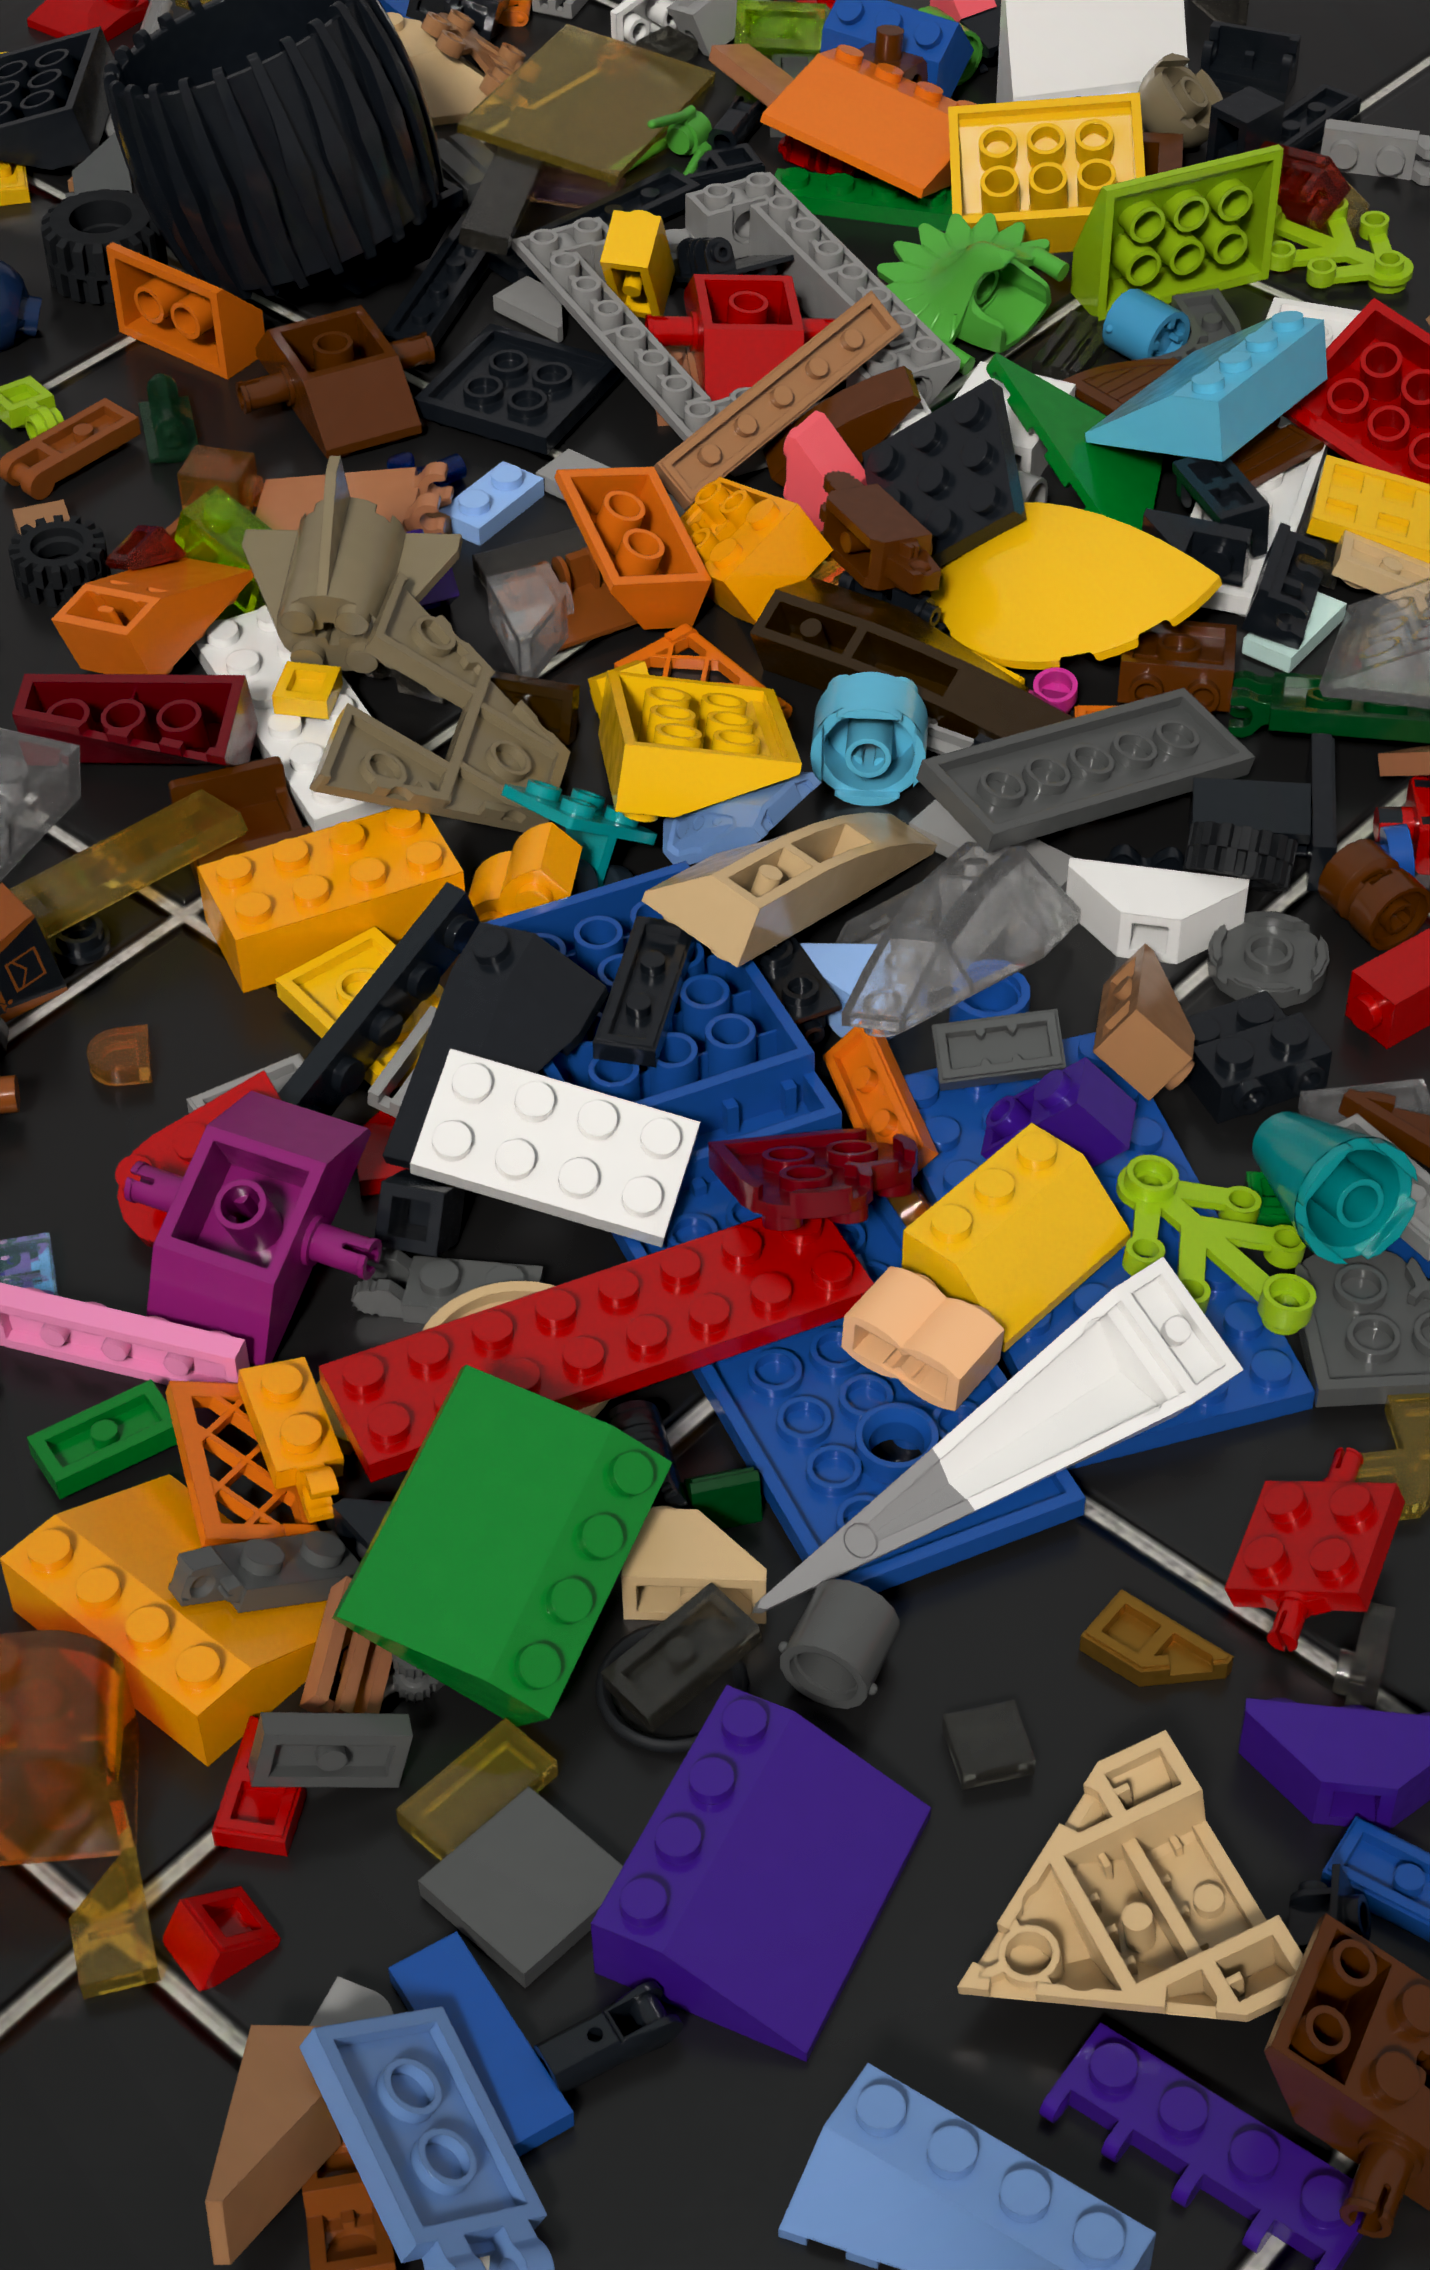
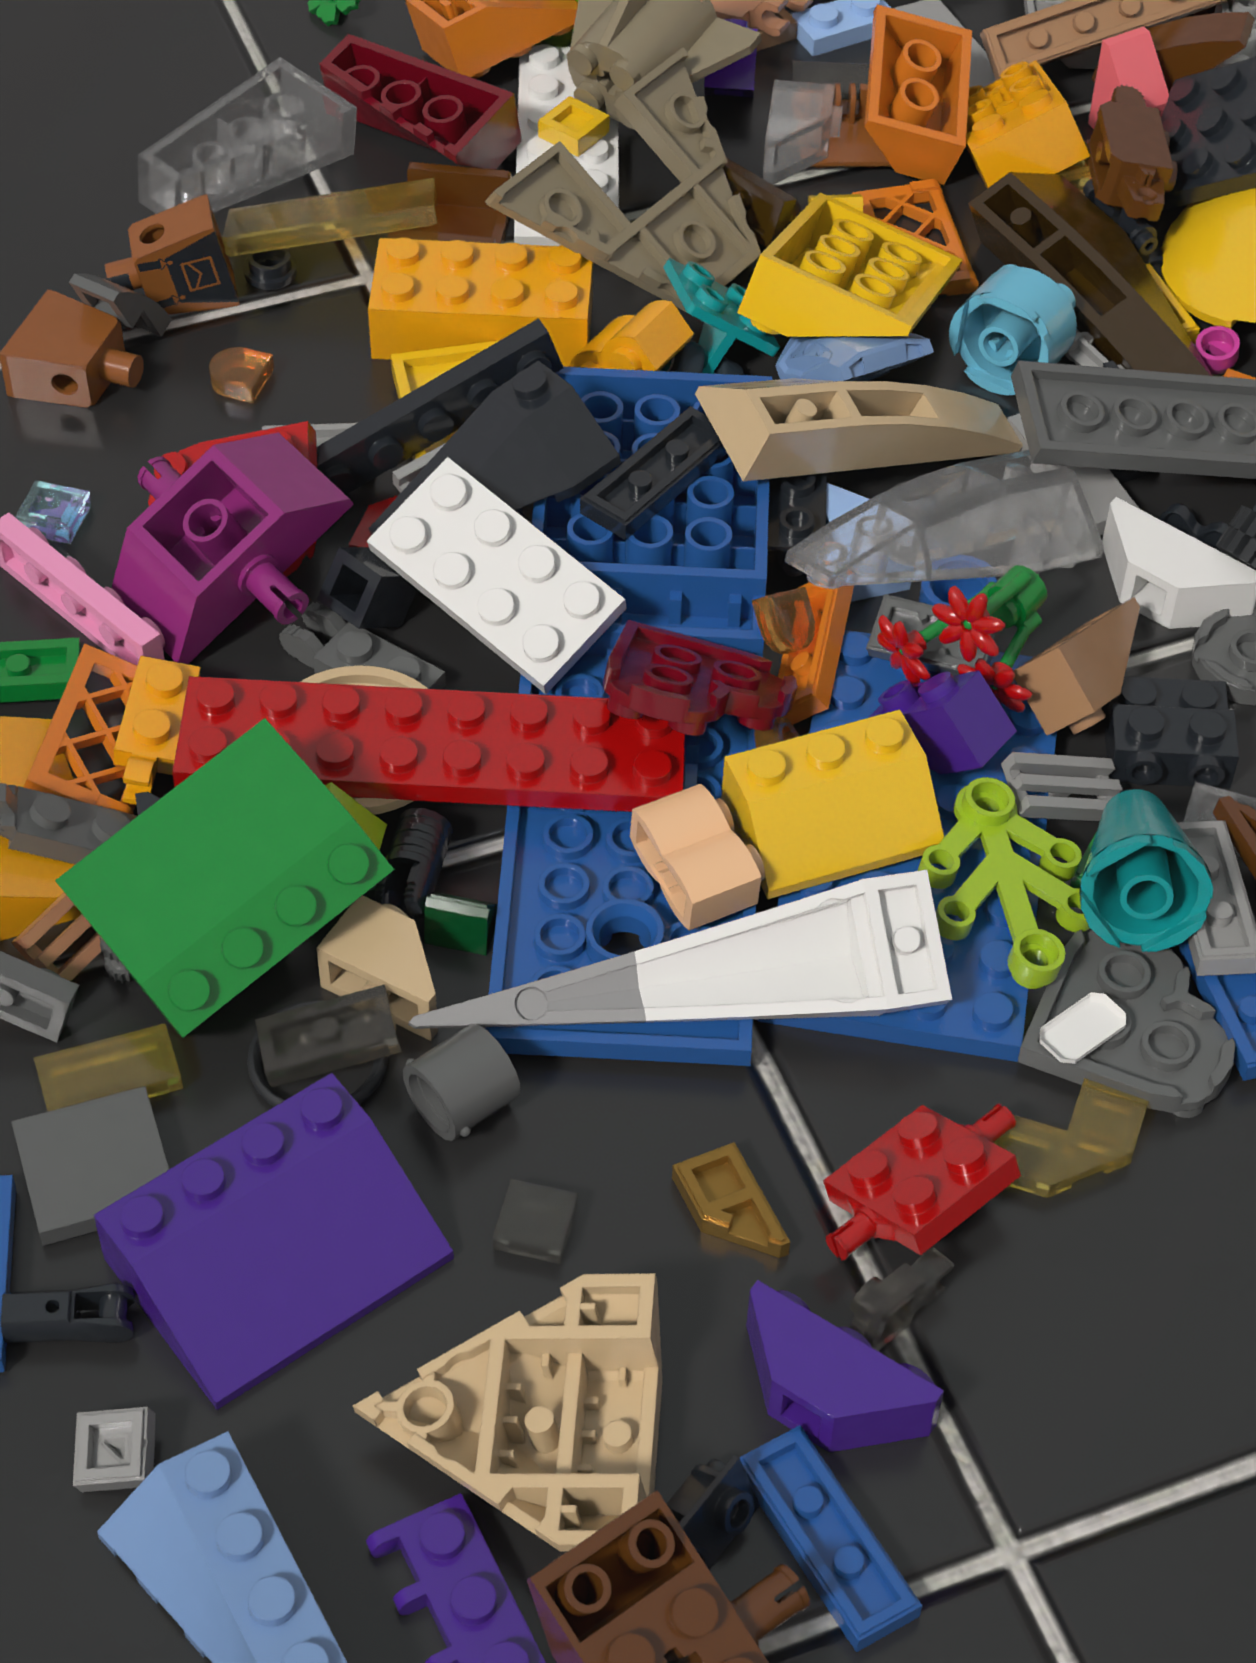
camera: 25 degrees right, 5 degrees up
(745, 2142) = (113, 1448): none -> light grey tile
(852, 1085) = (785, 620): none -> clear orange tile
(1062, 1009) = (997, 606): none -> red plant
(1189, 1132) = (1060, 777): none -> light grey tile
(1362, 1349) = (1082, 1028): none -> white piece

